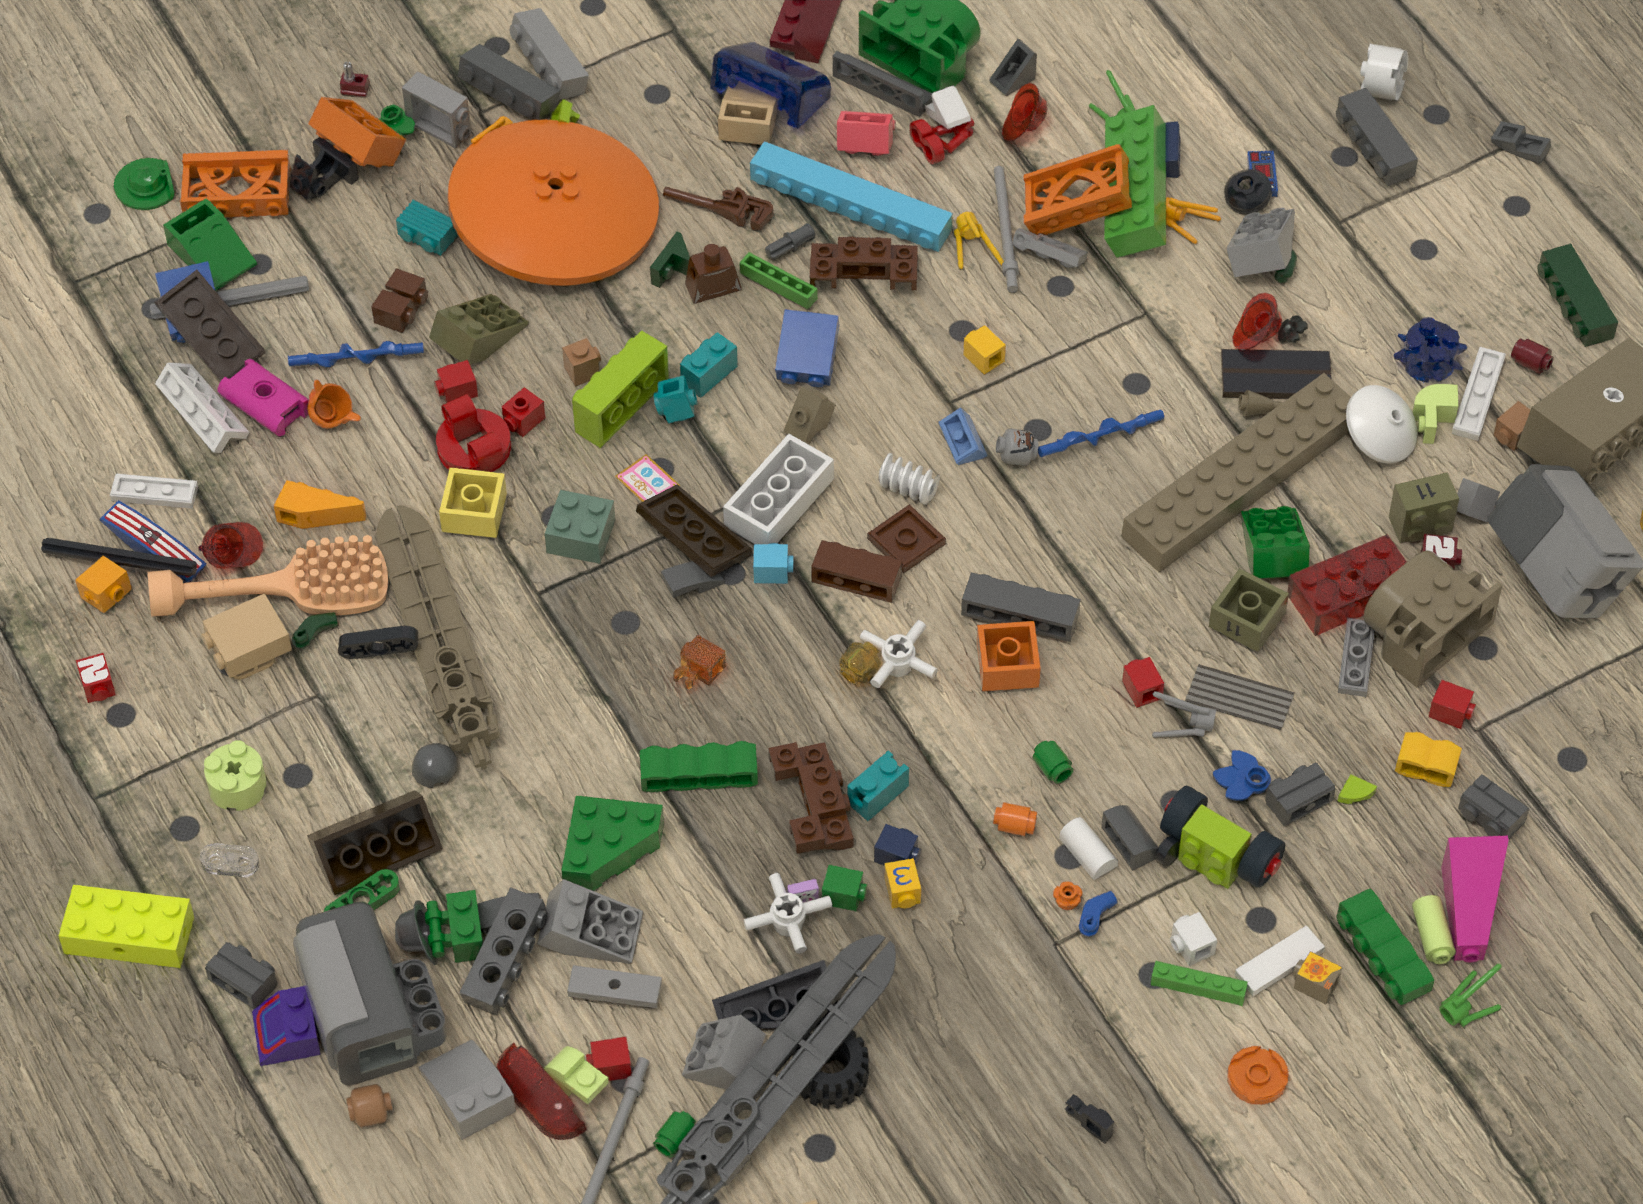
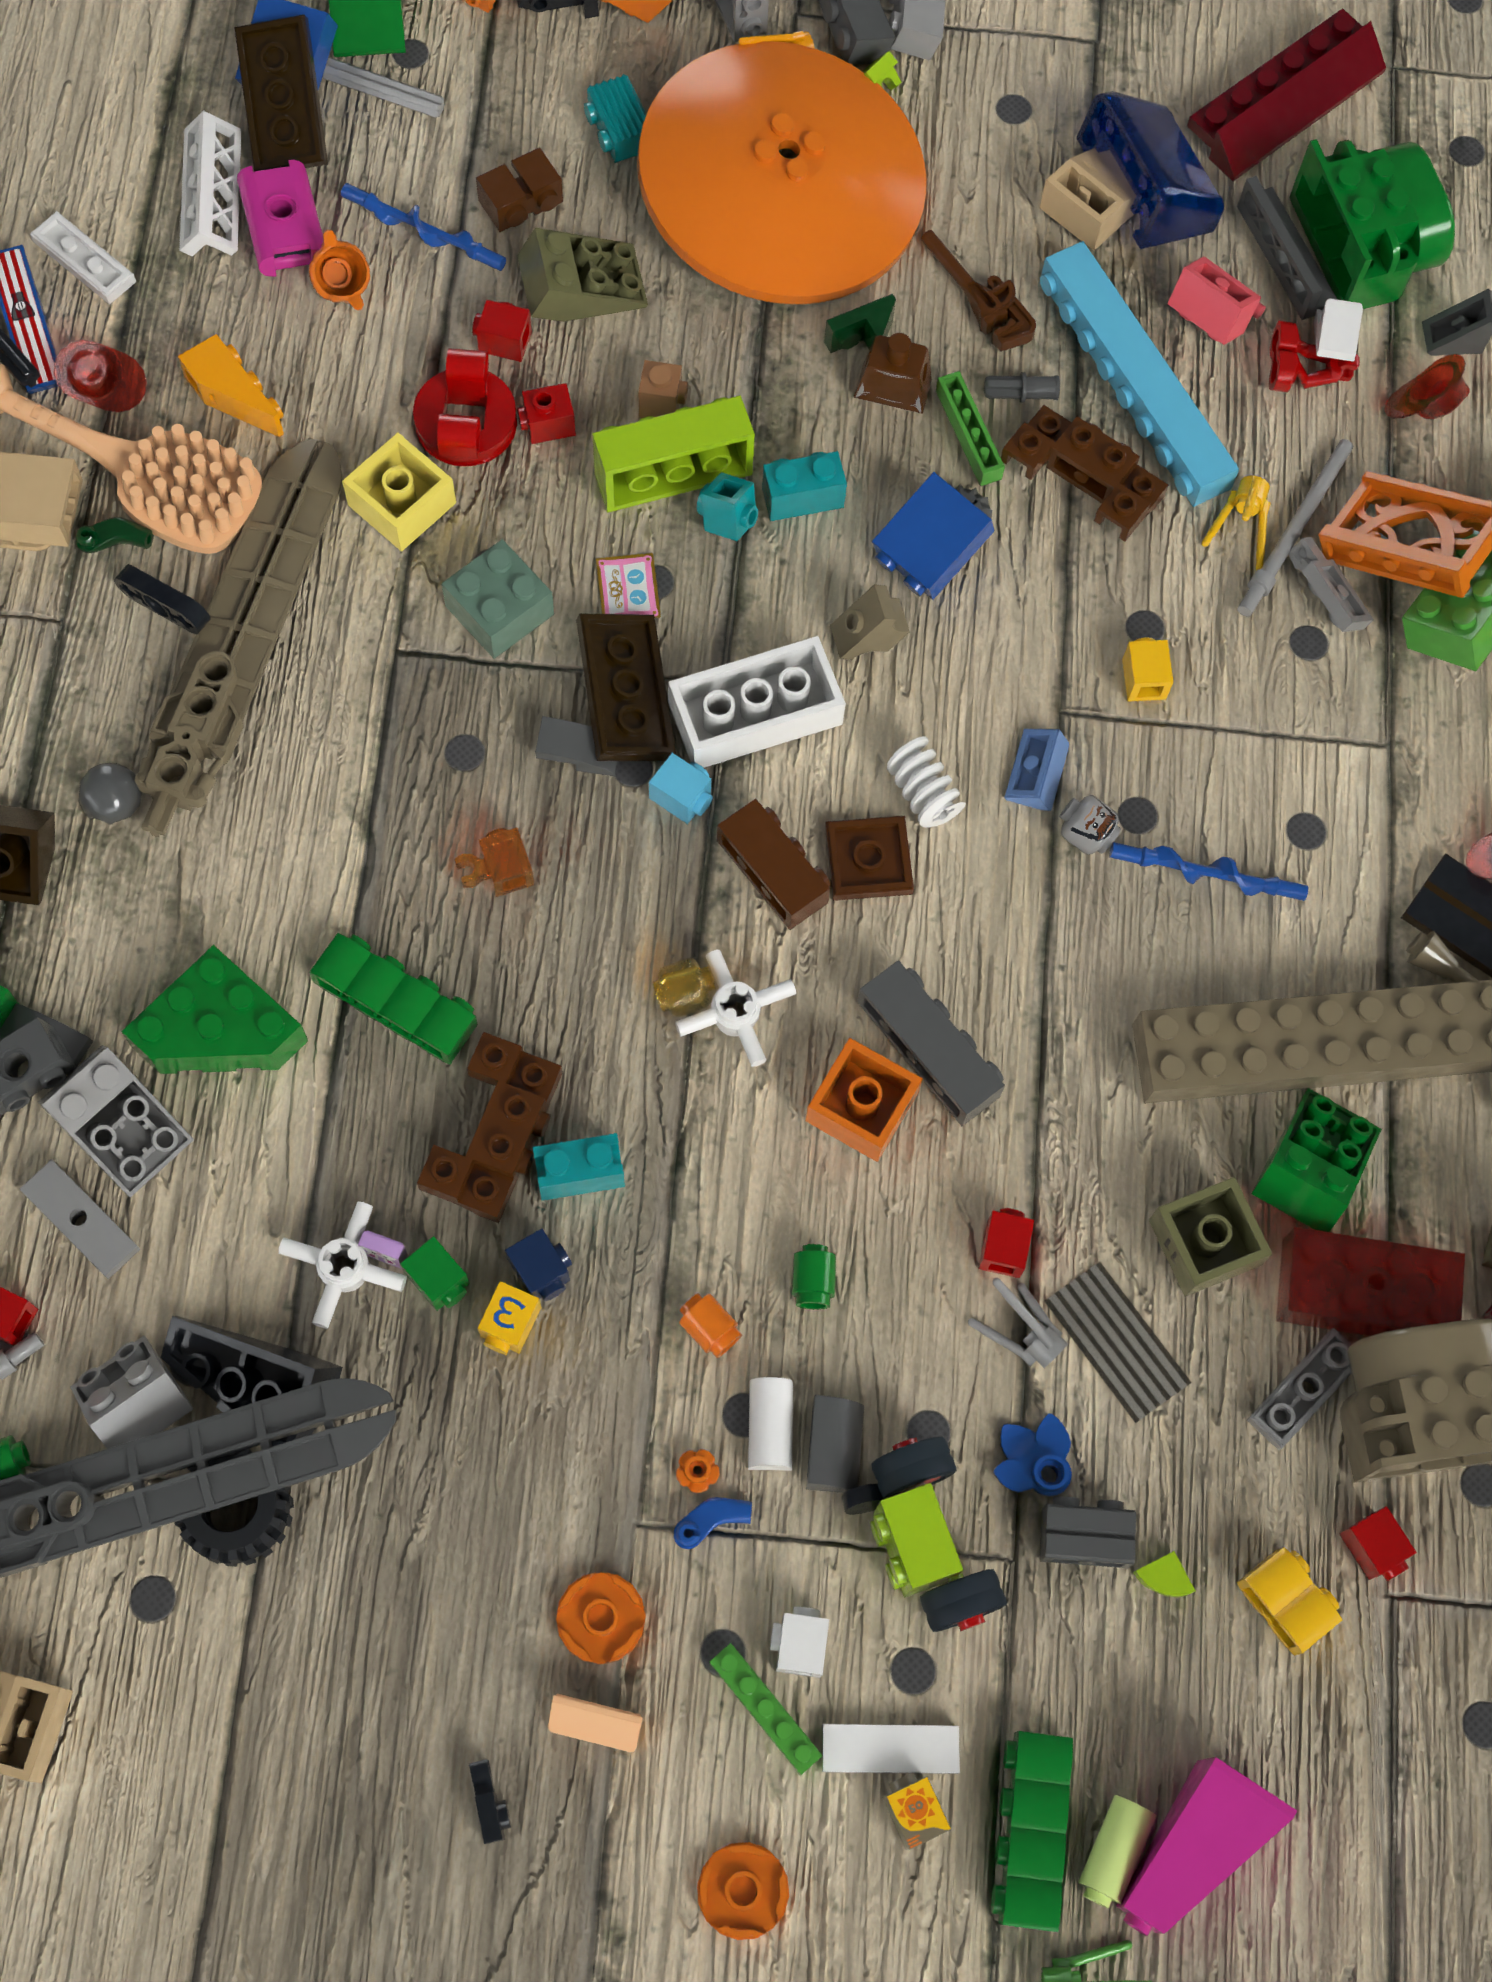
camera: 30 degrees right, 15 degrees up
(1075, 998) = (600, 1618): none -> orange tile
(1114, 1045) = (595, 1723): none -> light nougat slope
(1492, 808) = (1322, 1732): dark grey brick -> none

